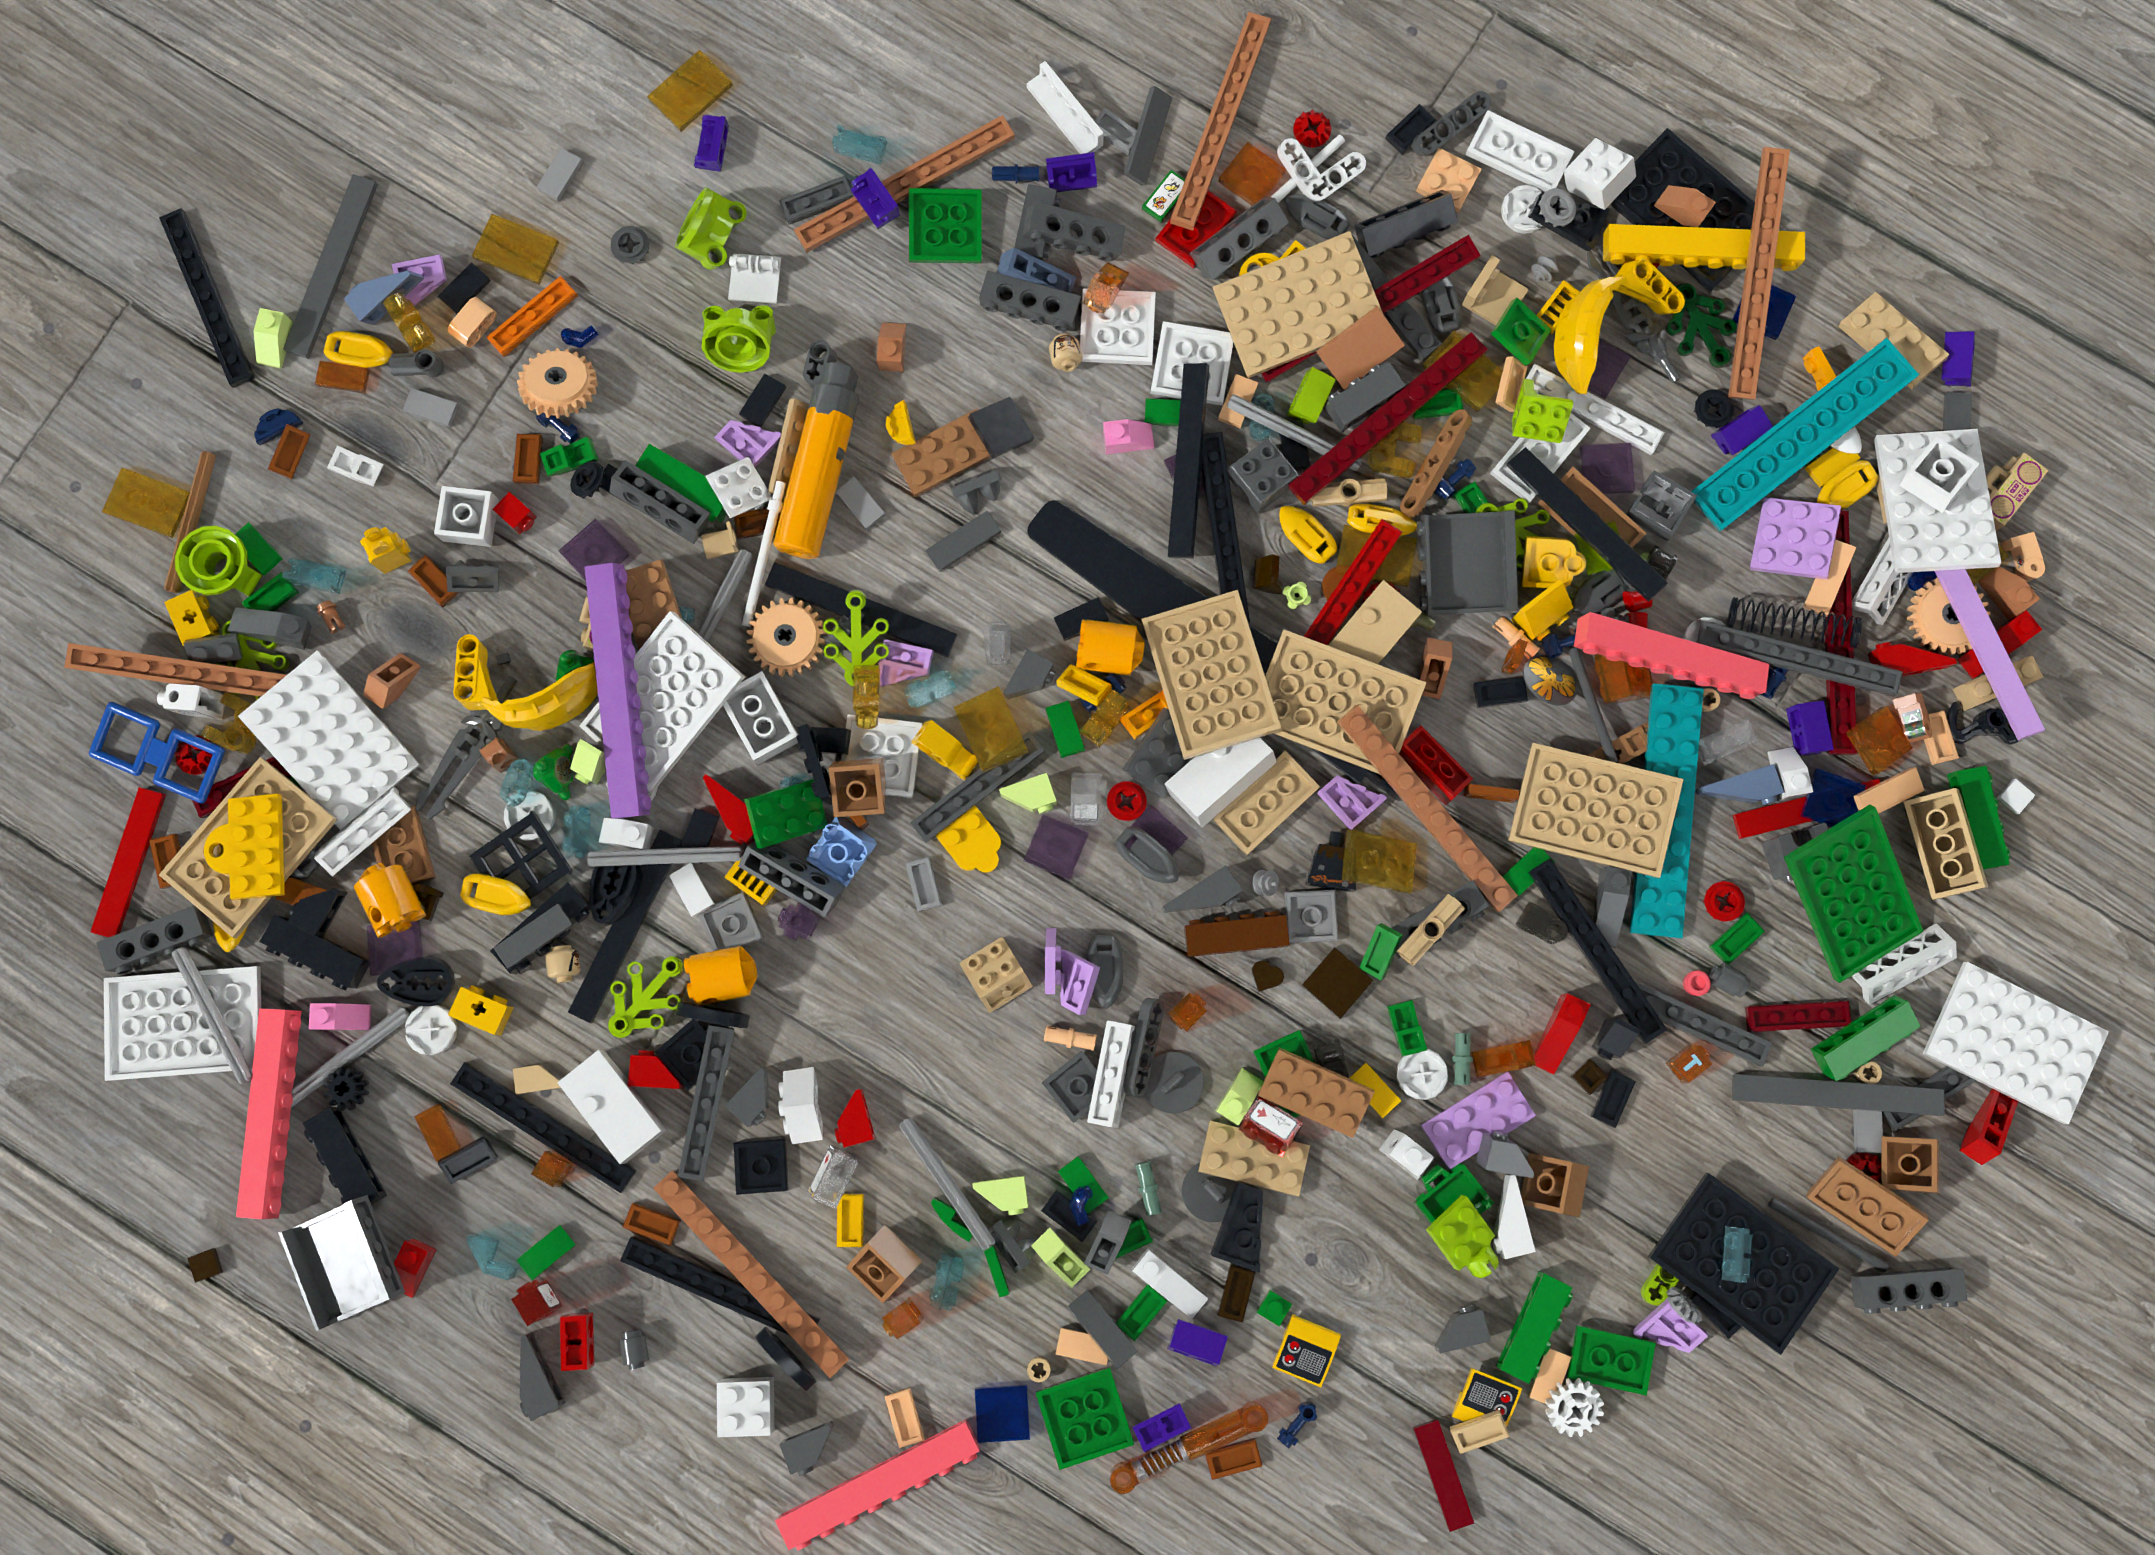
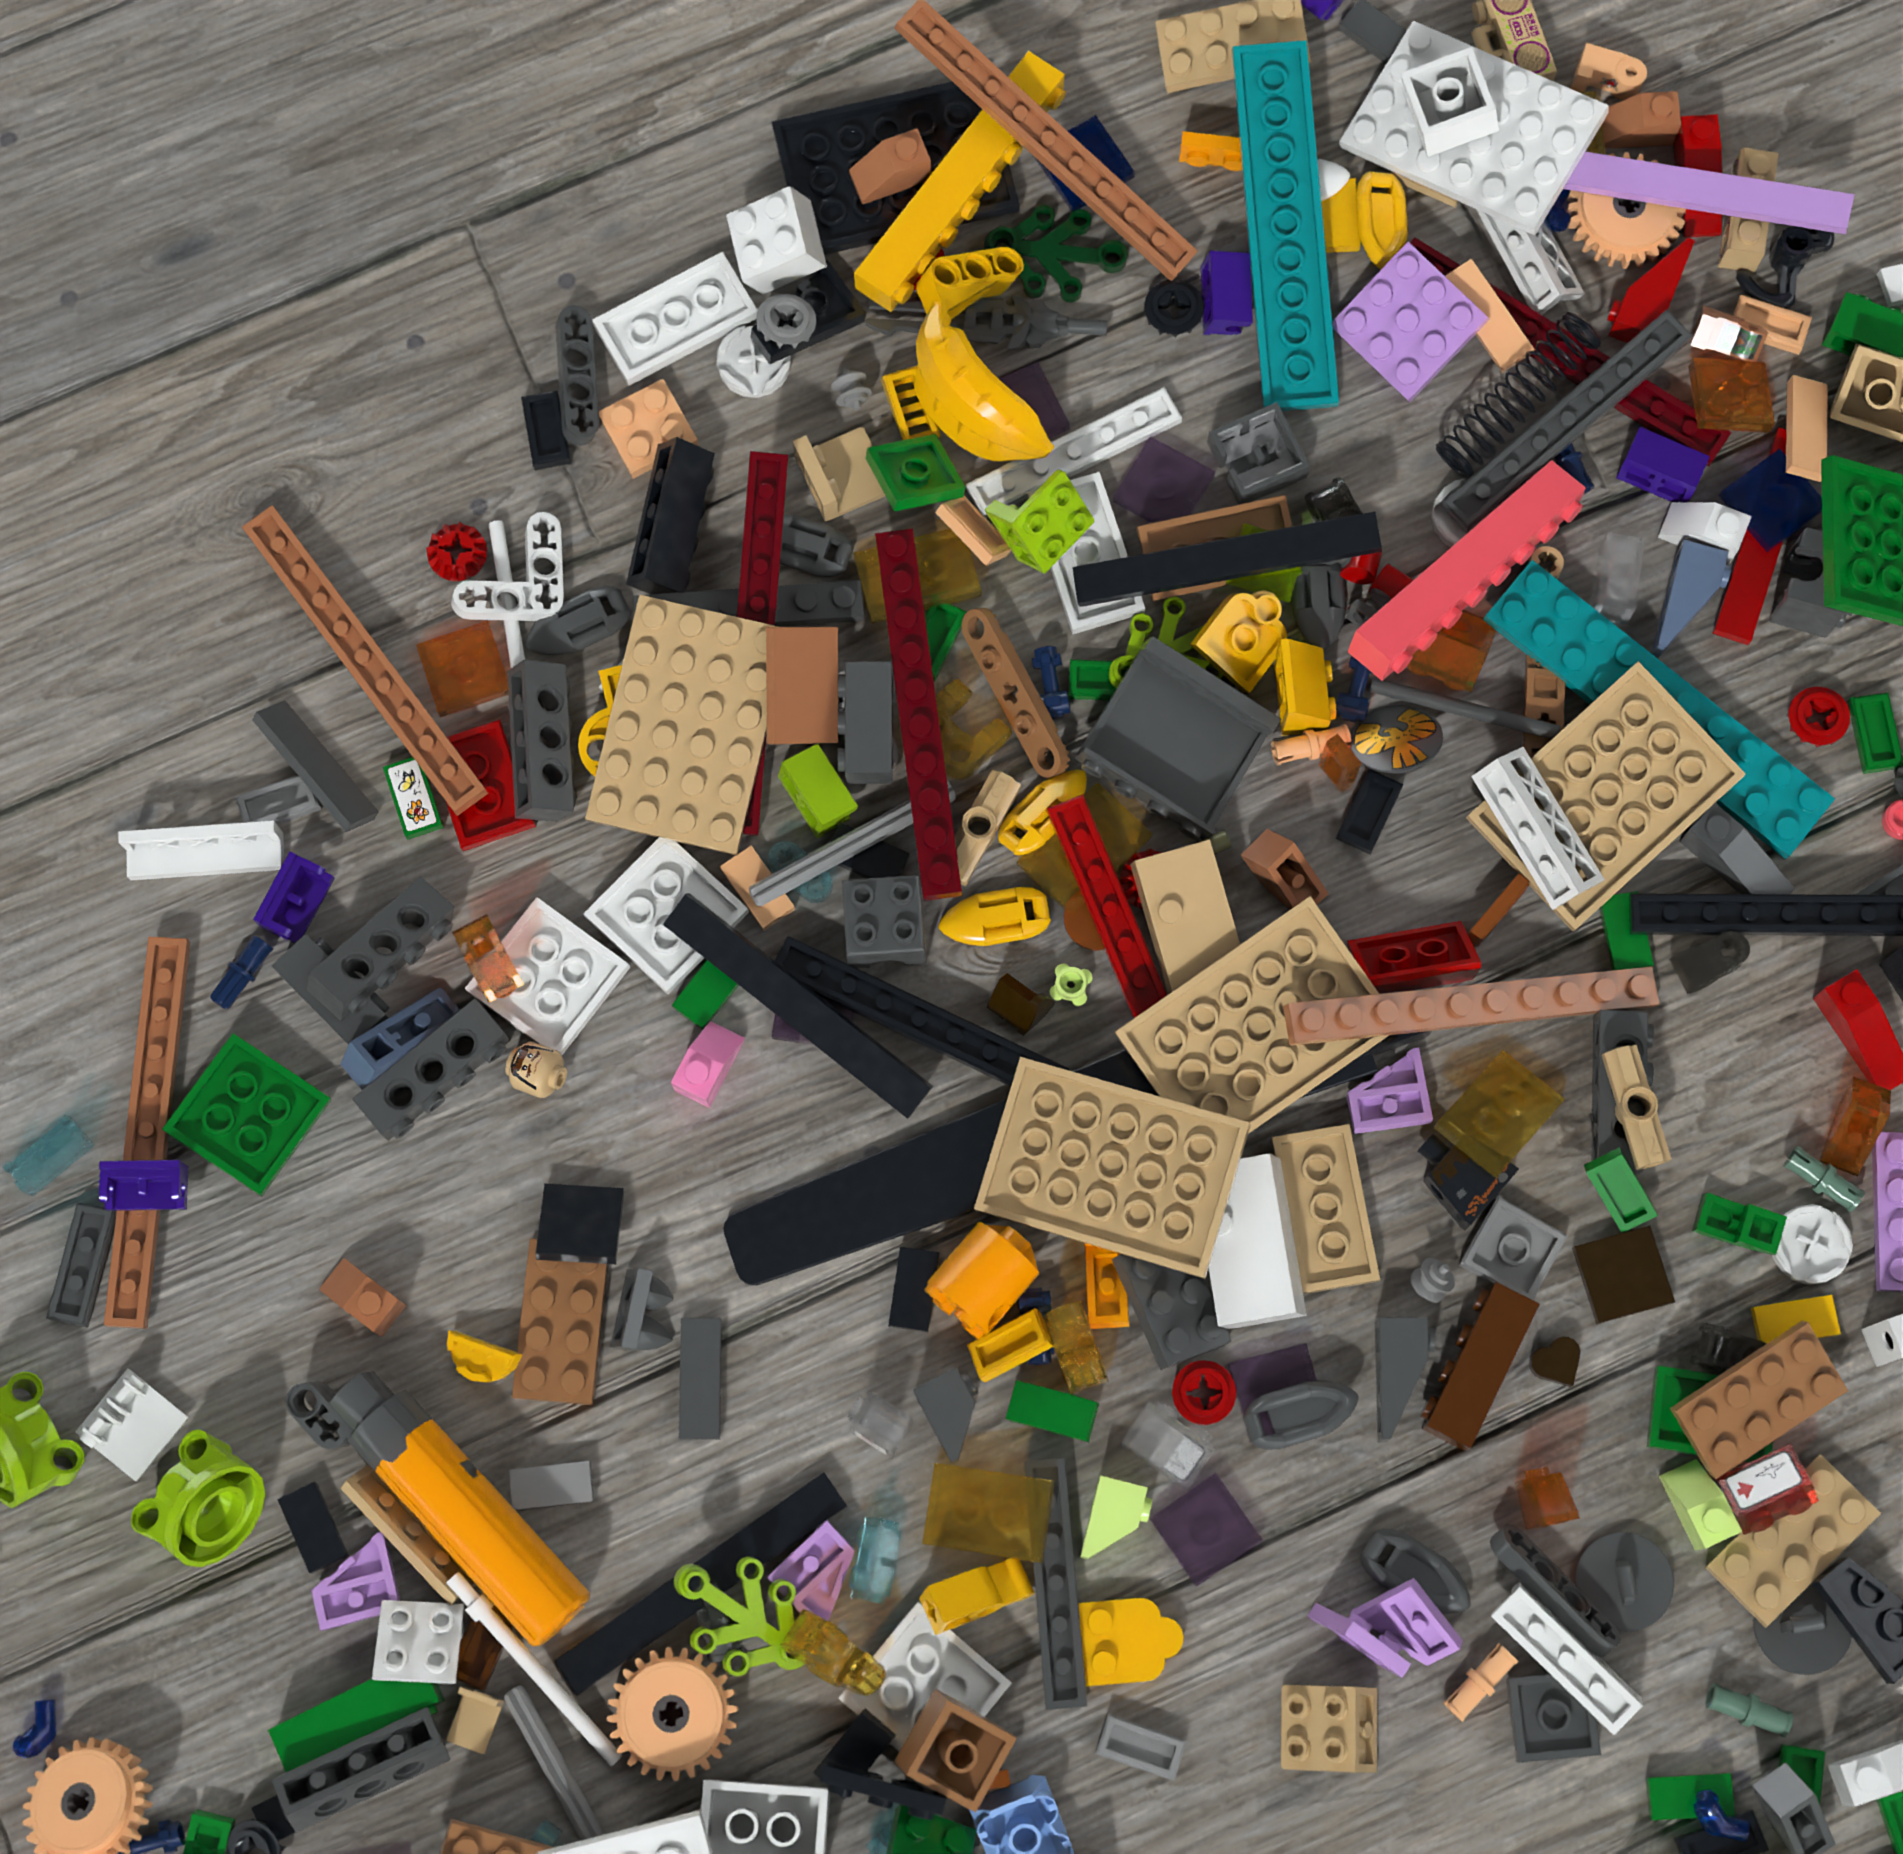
camera: 55 degrees left, 5 degrees down
(1547, 780) = (1534, 830): none -> white fence

